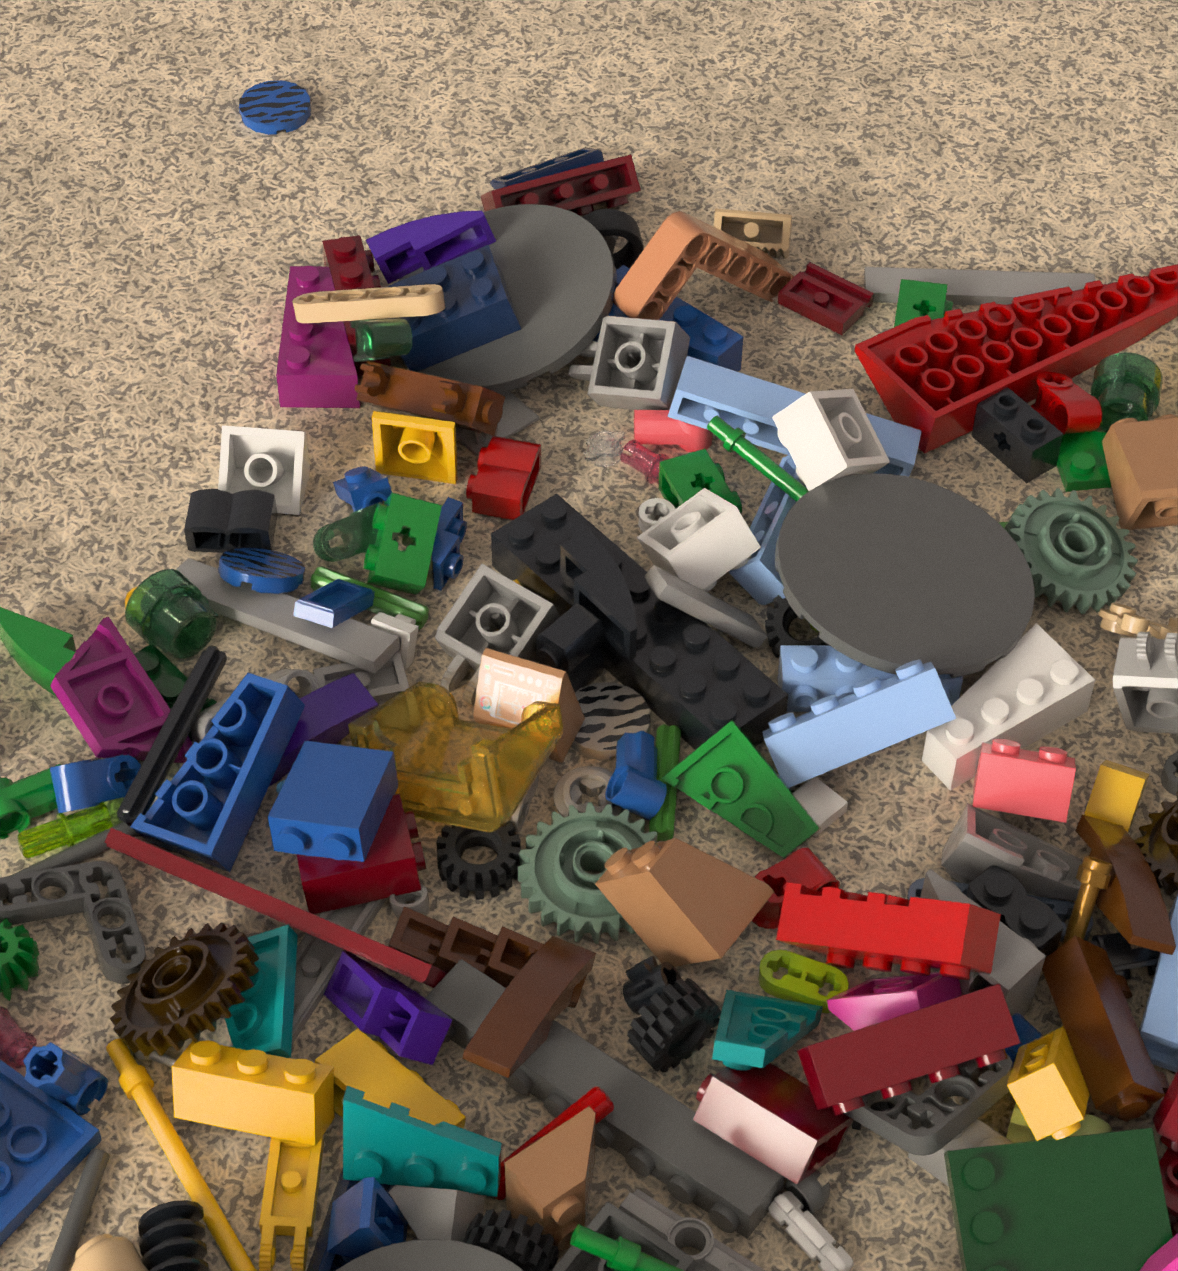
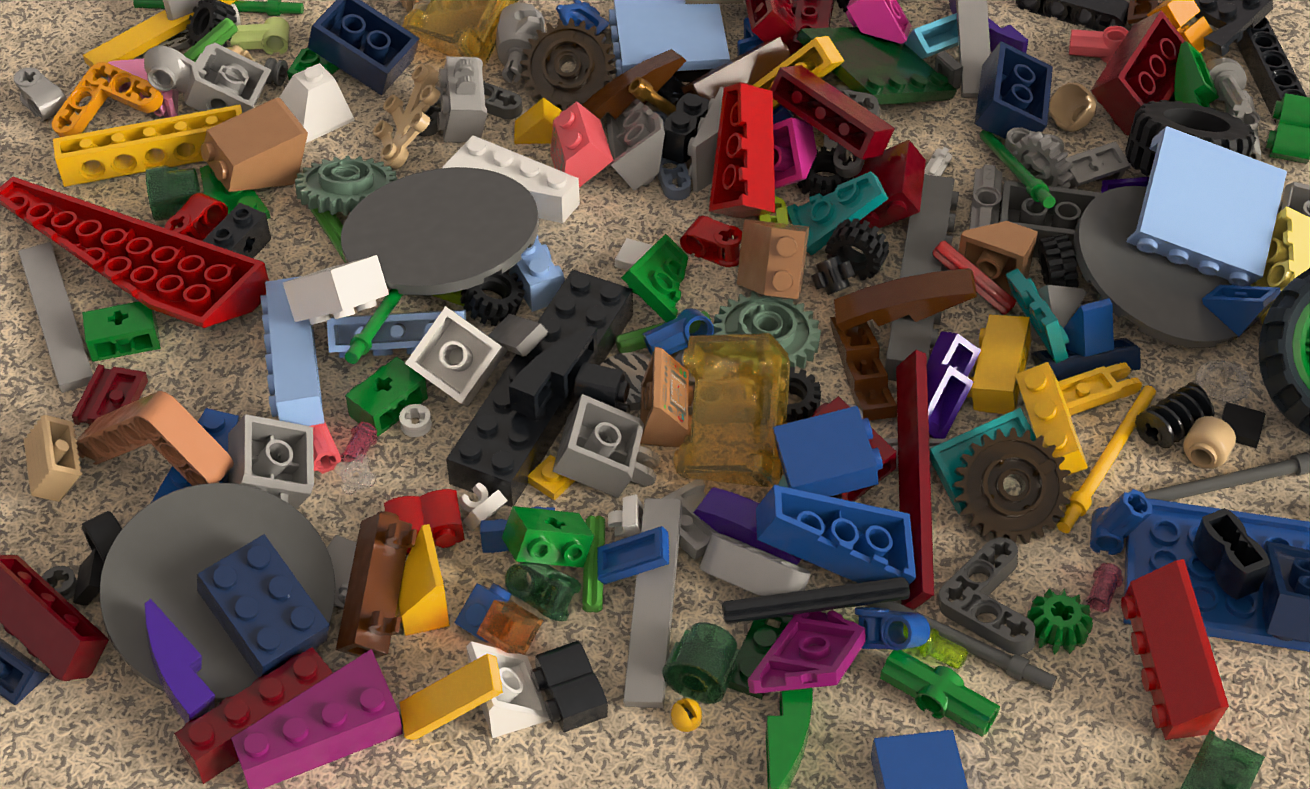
camera: 115 degrees left, 0 degrees up
(263, 568) = (616, 632): blue tile -> none
(264, 415) = (450, 697): none -> yellow tile
(322, 490) = (509, 627): none -> clear orange brick
(369, 303) = (299, 644): tan beam -> none
(381, 338) = (339, 625): clear green piece -> none
(489, 519) = (483, 508): none -> white tile
(858, 724) = (581, 223): light blue brick -> none

